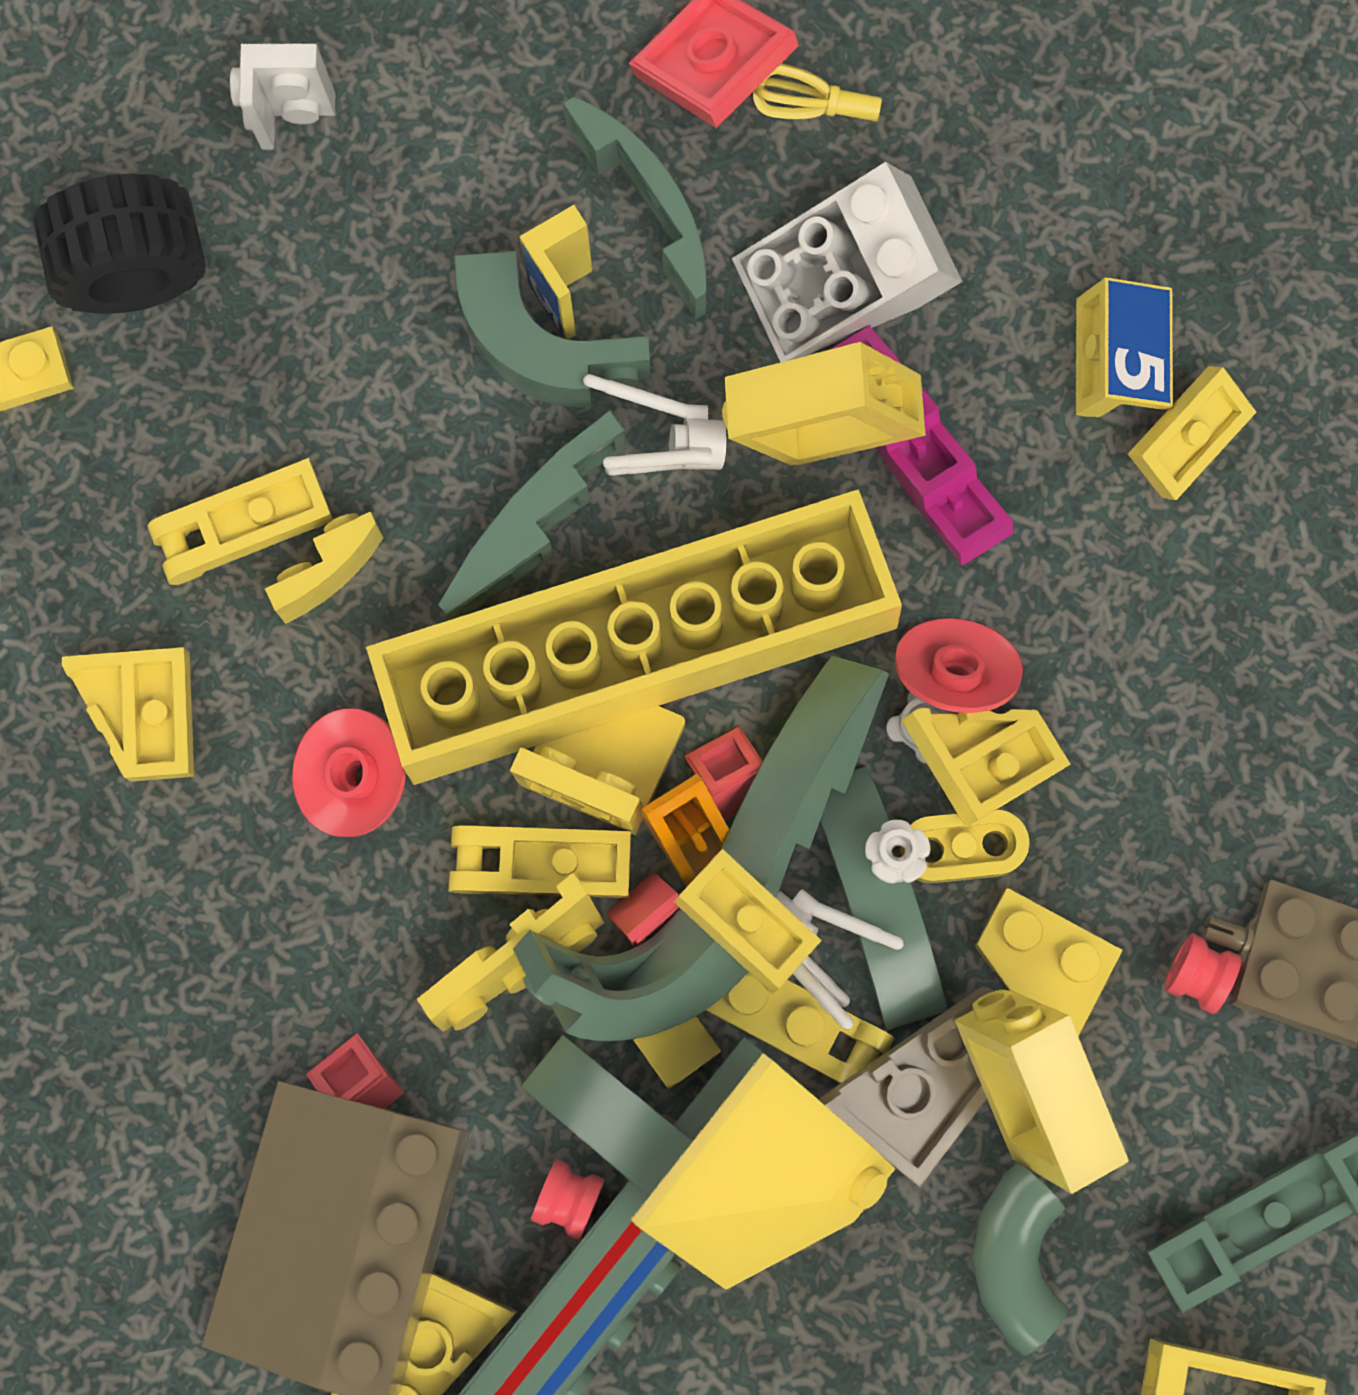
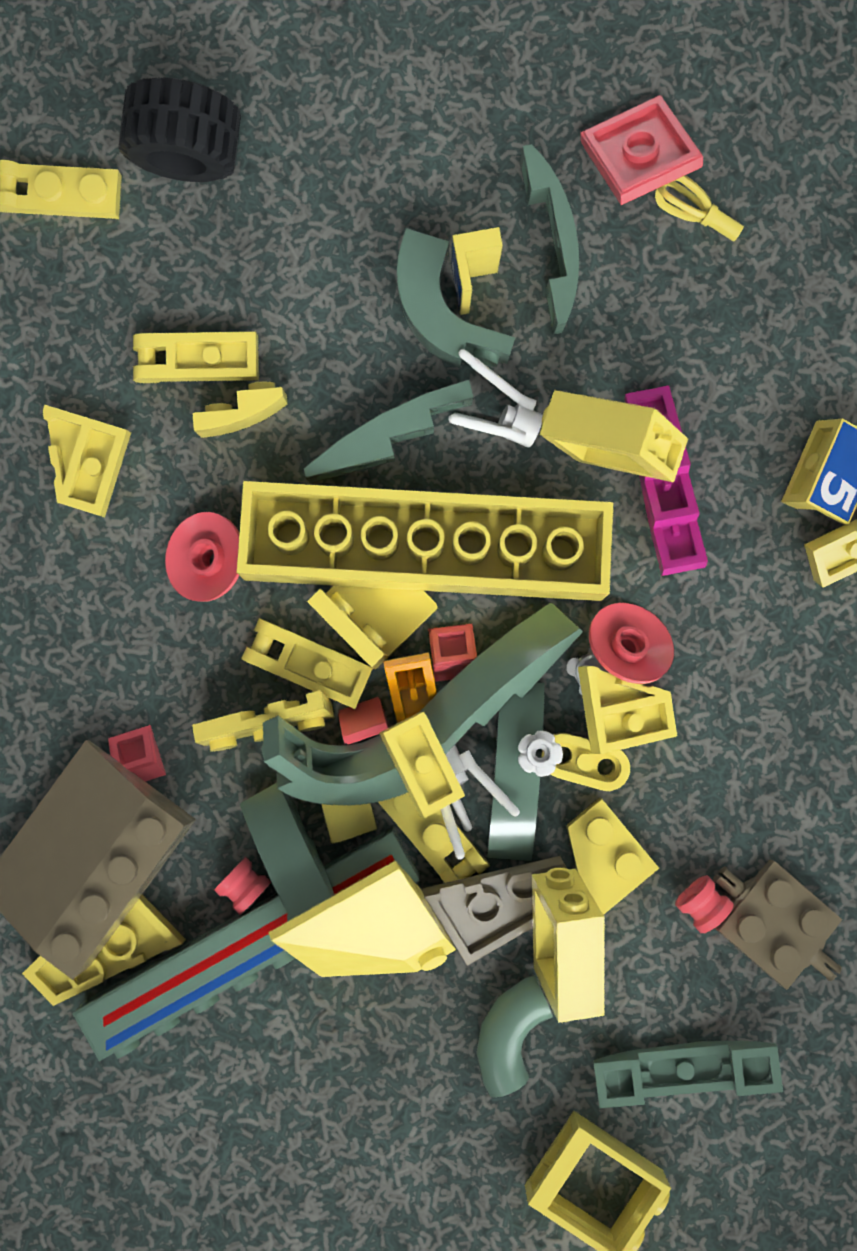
camera: 20 degrees right, 10 degrees up
(283, 83) = (331, 53): white bracket -> none
(847, 264) = (671, 337): white slope -> none

